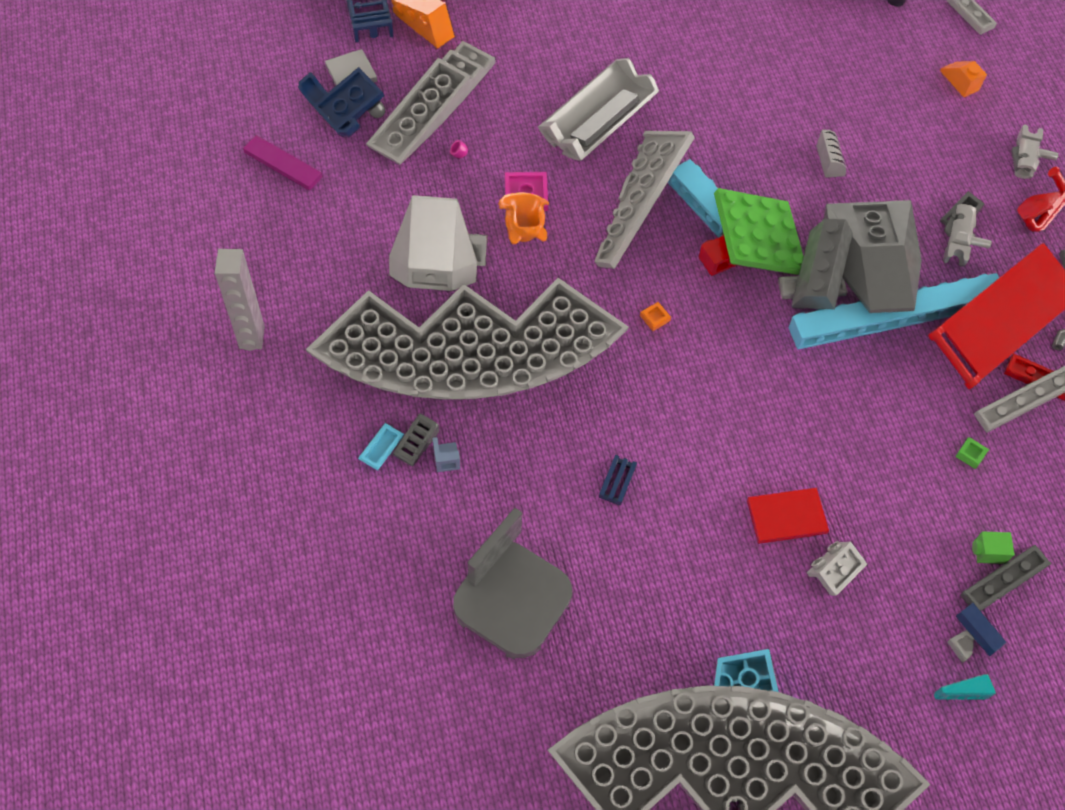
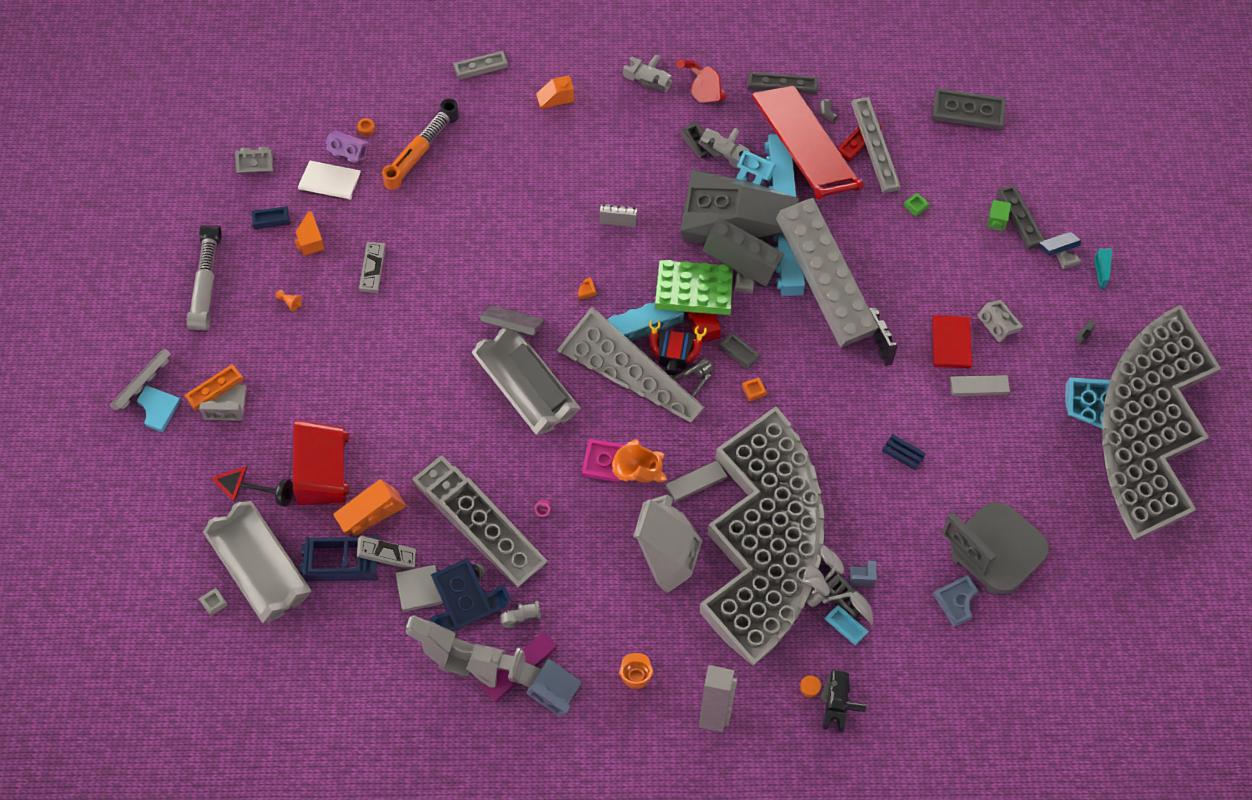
camera: 75 degrees left, 0 degrees up
(258, 188) = (554, 688): none -> sand blue bracket
(280, 107) = (462, 657): none -> light grey piece
(289, 254) = (636, 670): none -> orange hat
(289, 445) = (836, 699): none -> black piece
(302, 421) = (810, 686): none -> orange tile
(337, 152) = (514, 617): none -> light grey connector
(376, 32) = (386, 552): none -> light grey tile
(403, 387) = (821, 590): none -> light grey plant
(436, 560) = (956, 599): none -> sand blue tile
(522, 275) = (696, 481): none -> light grey tile
(663, 260) = (700, 369): none -> dark grey plant
(664, 83) = (512, 320): none -> dark grey tile
(679, 228) = (675, 348): none -> torso
(700, 295) = (739, 350): none -> dark grey tile
(728, 146) = (586, 289): none -> orange tile
(735, 555) = (979, 385): none -> light grey tile
(757, 435) = (884, 339): none -> black wing
(823, 352) = (826, 272): none -> light grey brick
(855, 675) = (1085, 332): none -> dark grey tile
(940, 266) = (756, 165): none -> medium azure plate

